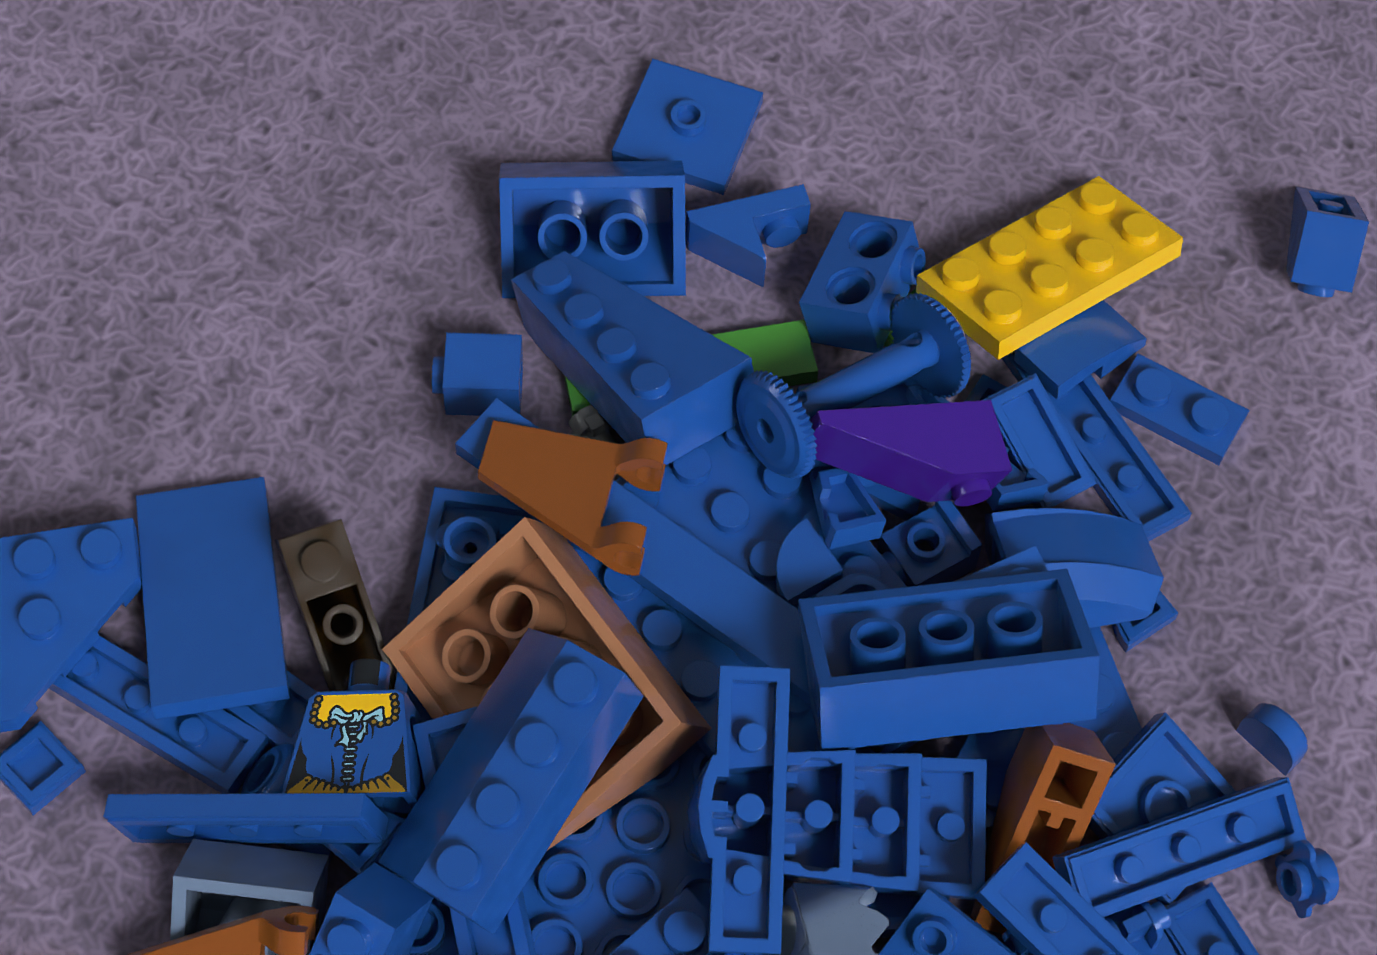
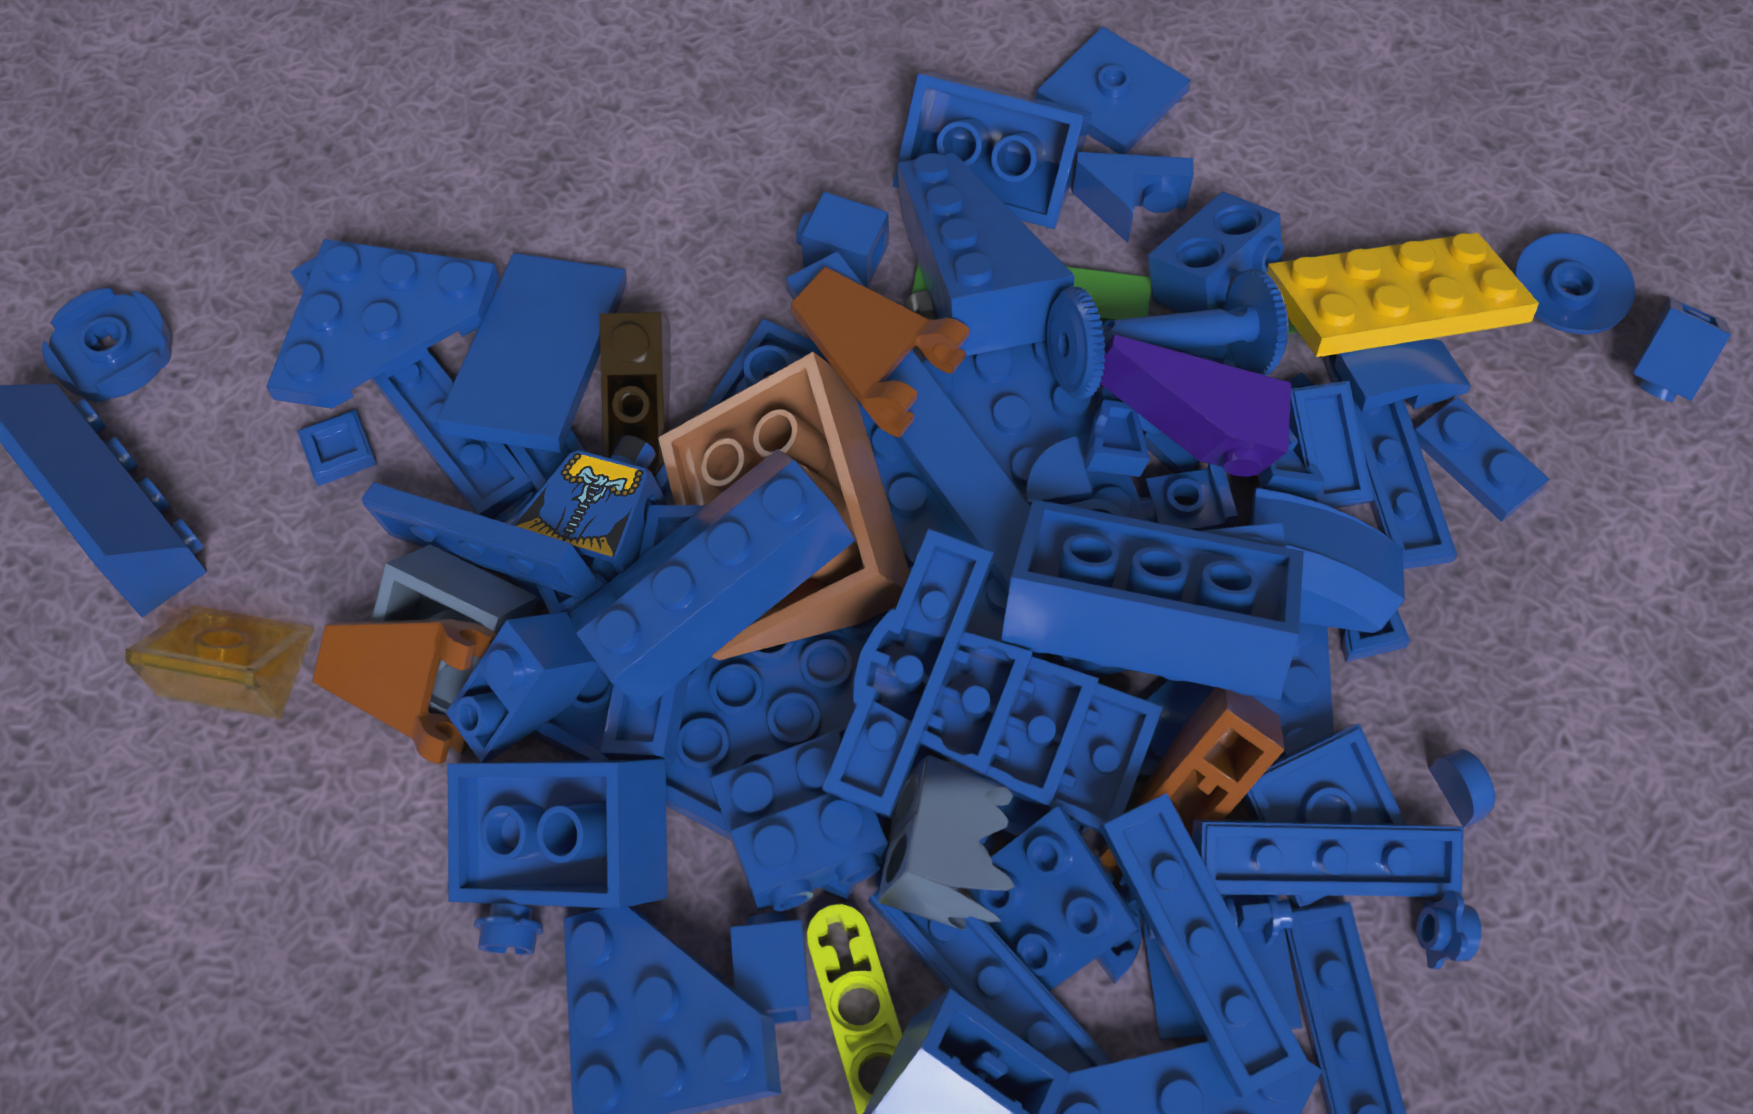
camera: 25 degrees right, 0 degrees up
(1211, 183) = (1588, 269): none -> blue dish

